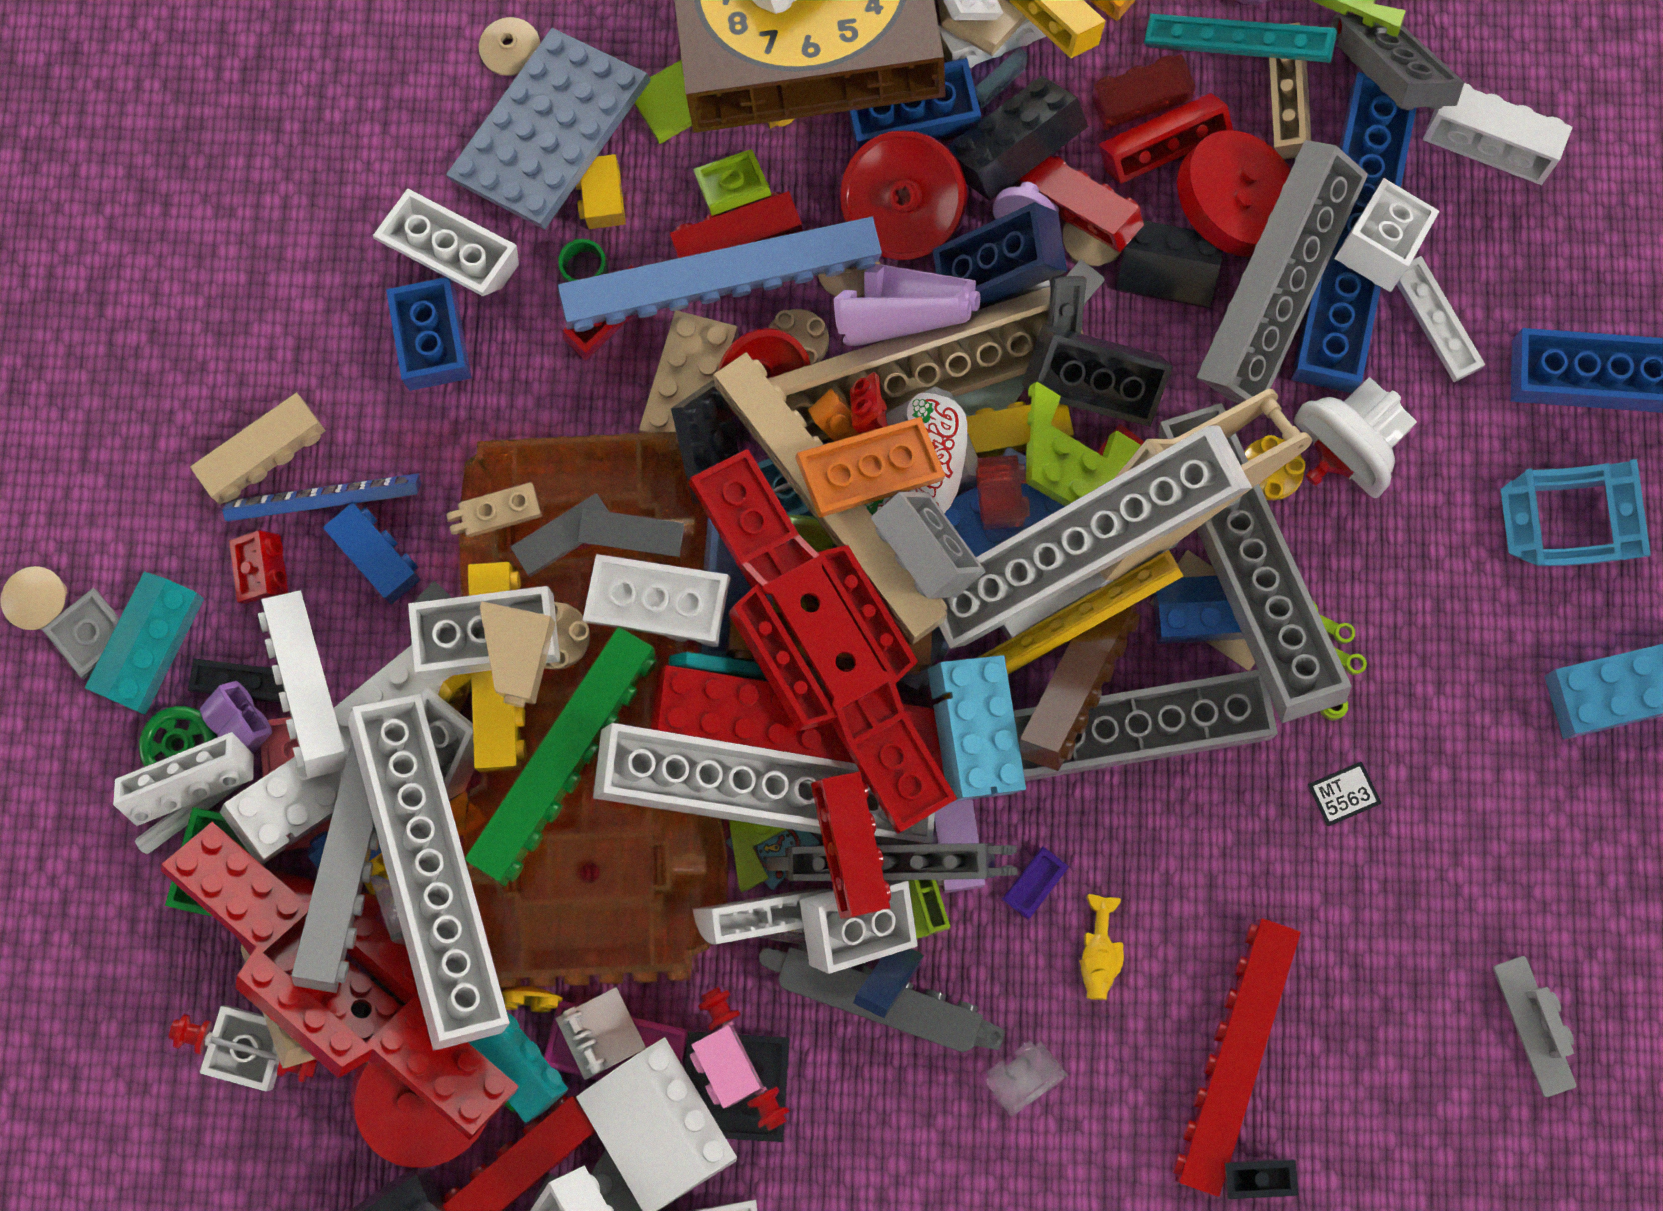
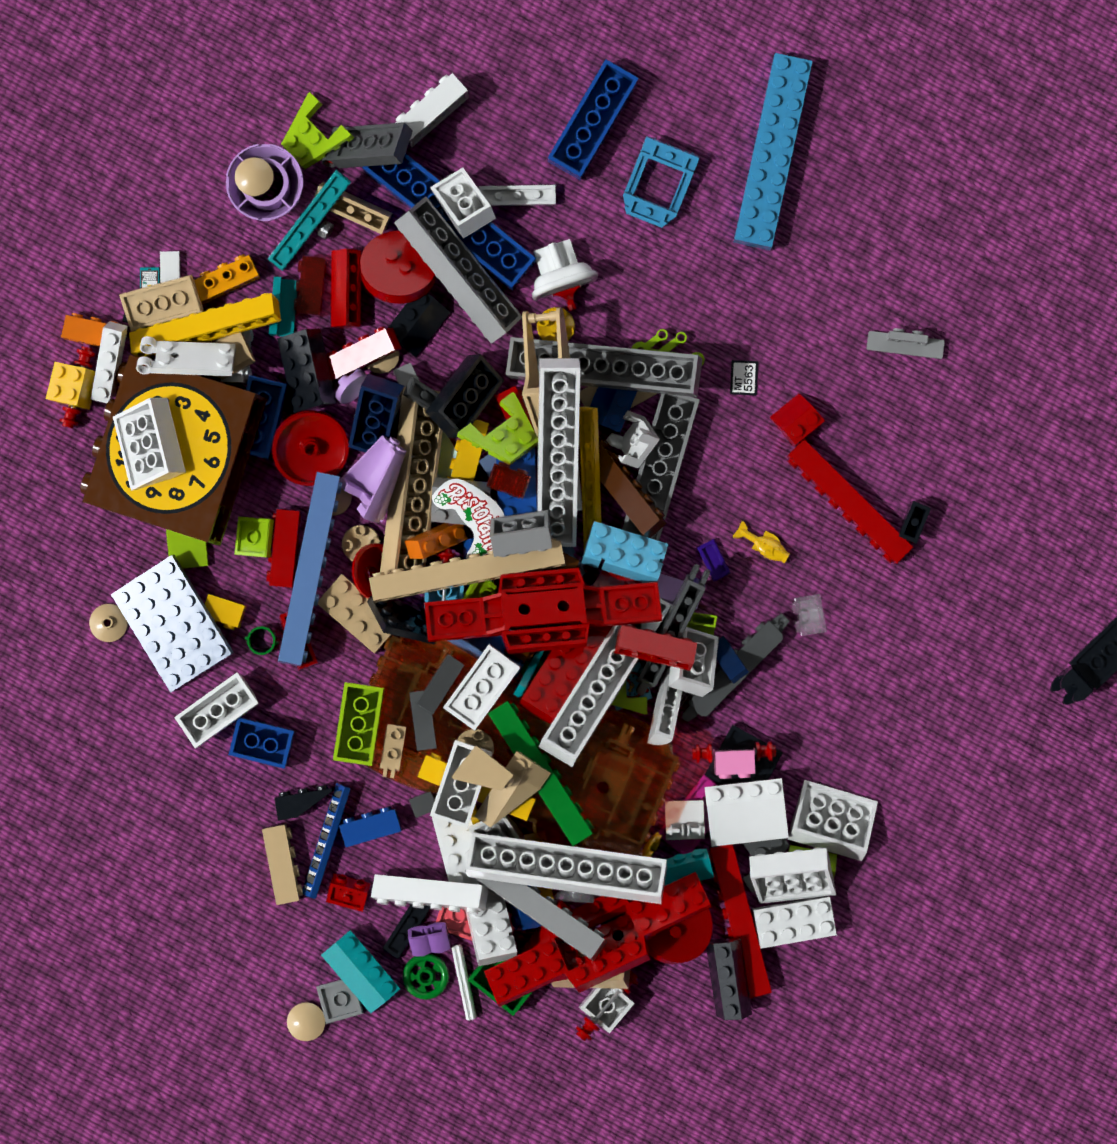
camera: 70 degrees left, 10 degrees up
(183, 779) = (449, 979): white brick -> none
(357, 428) = (294, 805): none -> black slope
(511, 440) = (358, 724): none -> lime brick
(537, 732) = (527, 781): none -> tan wedge
(867, 405) = (429, 527): red bracket -> none
(870, 467) = (464, 542): orange plate -> none
(1001, 77) = (260, 345): clear light blue tile -> none
(1081, 72) = (286, 293): none -> teal panel
(1160, 670) = (636, 442): none -> white panel
(1236, 73) = (325, 229): none -> flat silver axle
(1324, 909) = (797, 419): none -> red slope

